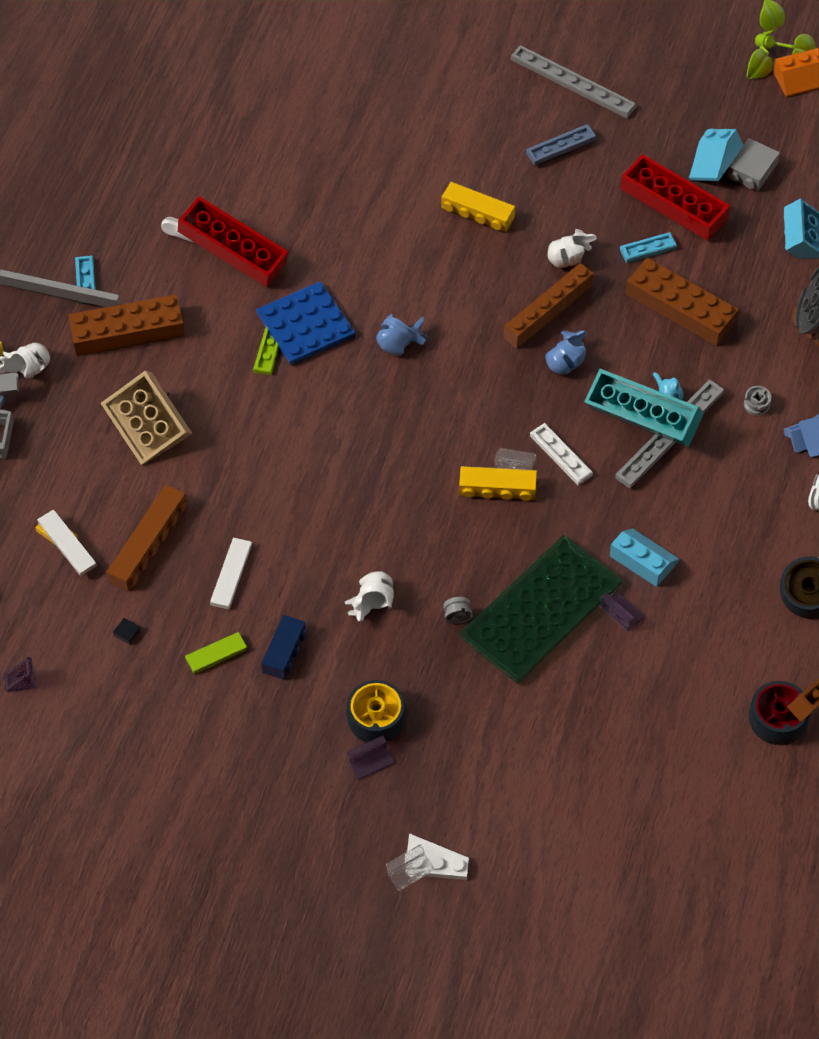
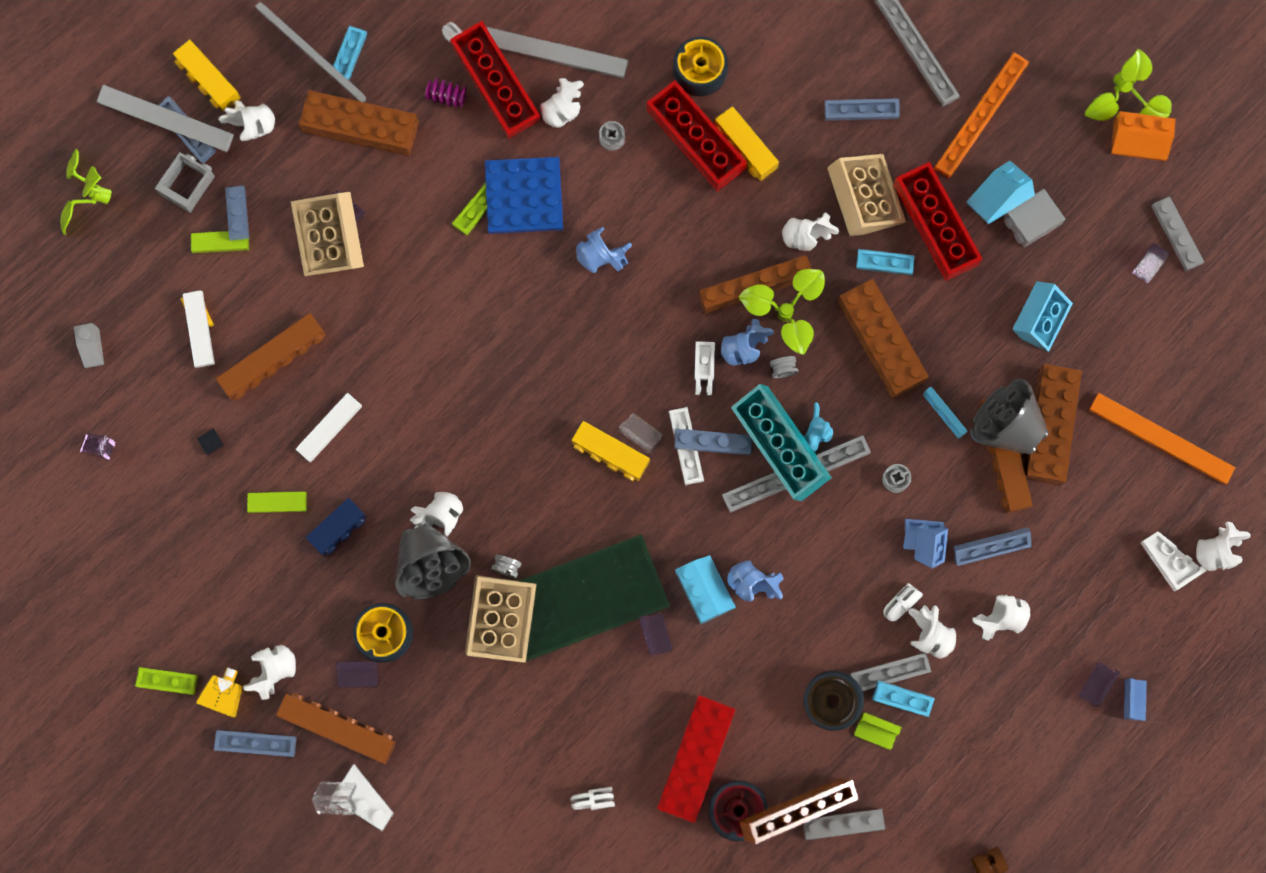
camera: 25 degrees right, 20 degrees up
(47, 469) = (216, 242): none -> lime tile
(52, 438) = (237, 213): none -> sand blue plate
(192, 845) = (166, 681): none -> lime tile
(193, 271) = (445, 93): none -> magenta piece
(252, 830) = (222, 693): none -> yellow torso
(284, 204) = (559, 53): none -> light grey tile
(289, 782) = (275, 666): none -> white piece
(302, 239) = (560, 107): none -> white piece
(307, 857) = (255, 743): none -> sand blue plate
(357, 247) = (609, 142): none -> light grey wheel
(376, 810) = (336, 728): none -> dark orange brick
(390, 631) = (428, 563): none -> dark grey cone
(405, 165) = (700, 79): none -> wheel
(432, 216) = (696, 135): none -> red brick
(476, 651) = (500, 619): none -> tan slope
(541, 385) = (704, 365): none -> white hinge
(583, 439) = (712, 442): none -> sand blue plate
(601, 203) = (866, 194): none -> tan slope
(610, 319) = (797, 334): none -> lime plant
(610, 356) = (783, 367): none -> light grey wheel
(645, 763) = (589, 799): none -> white arm
(663, 109) = (981, 115): none -> orange tile
(681, 528) = (749, 581): none -> medium blue piece
(717, 689) = (696, 759): none -> red brick
(768, 334) = (944, 412): none -> medium azure tile

